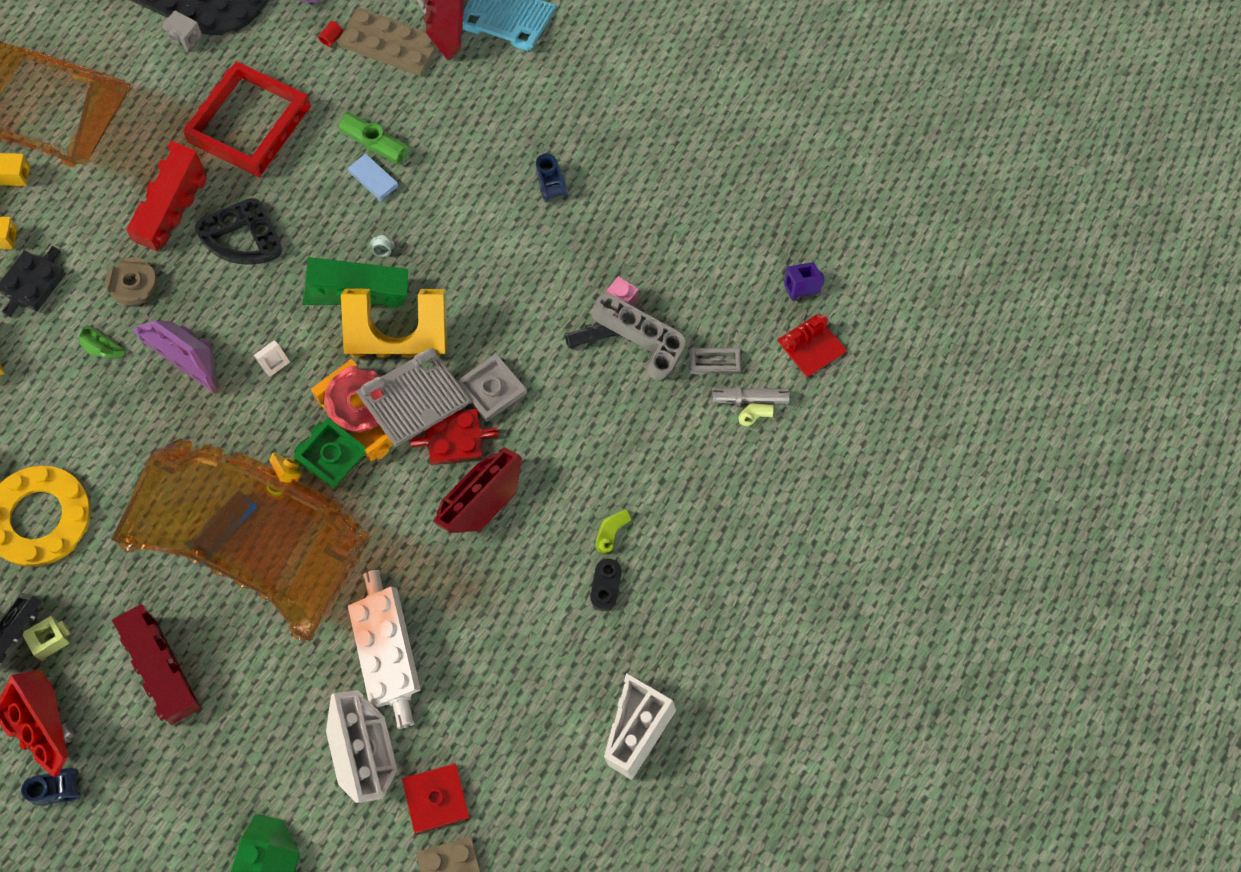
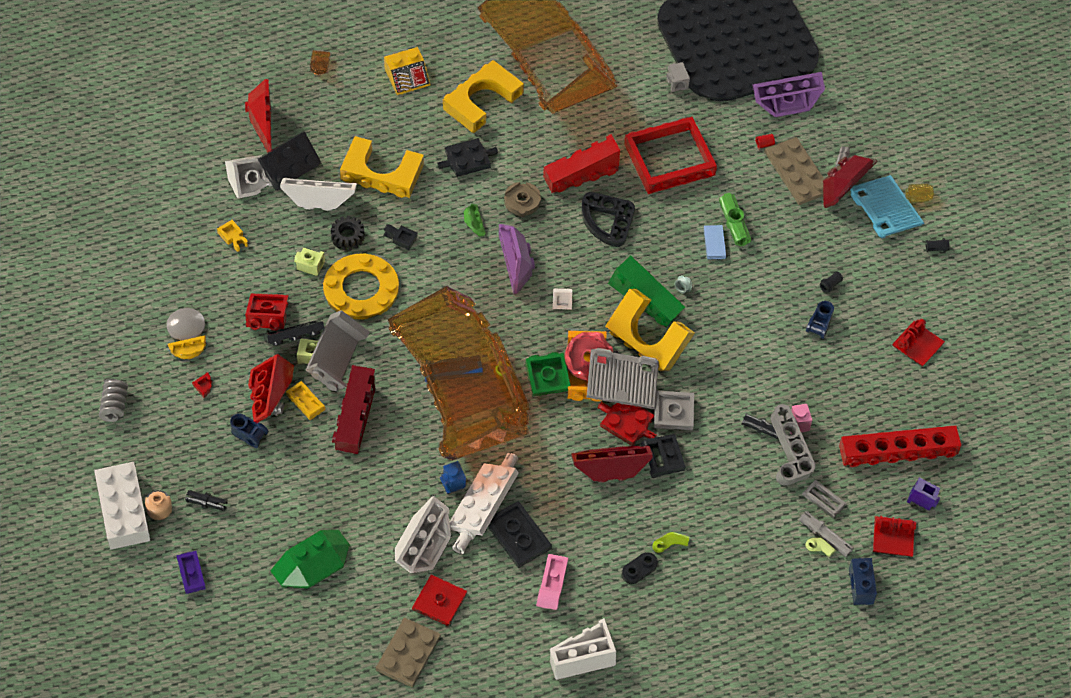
camera: 40 degrees right, 10 degrees down
(35, 423) = (402, 237): none -> black plate
(73, 614) = (335, 350): none -> light grey panel
(88, 697) = (305, 400): none -> yellow plate
(285, 468) = (516, 363): yellow plate -> none
(330, 650) = (453, 477): none -> blue brick
(454, 653) = (519, 534): none -> black plate
(523, 135) = (827, 284): none -> black pin
(527, 437) = (669, 454): none -> black plate
(535, 677) = (552, 582): none -> bright pink plate
(590, 18) = (937, 245): none -> black pin
(659, 130) = (918, 342): none -> red hinge
(773, 205) = (907, 439): none -> red brick
(828, 416) = (862, 581): none -> dark blue brick

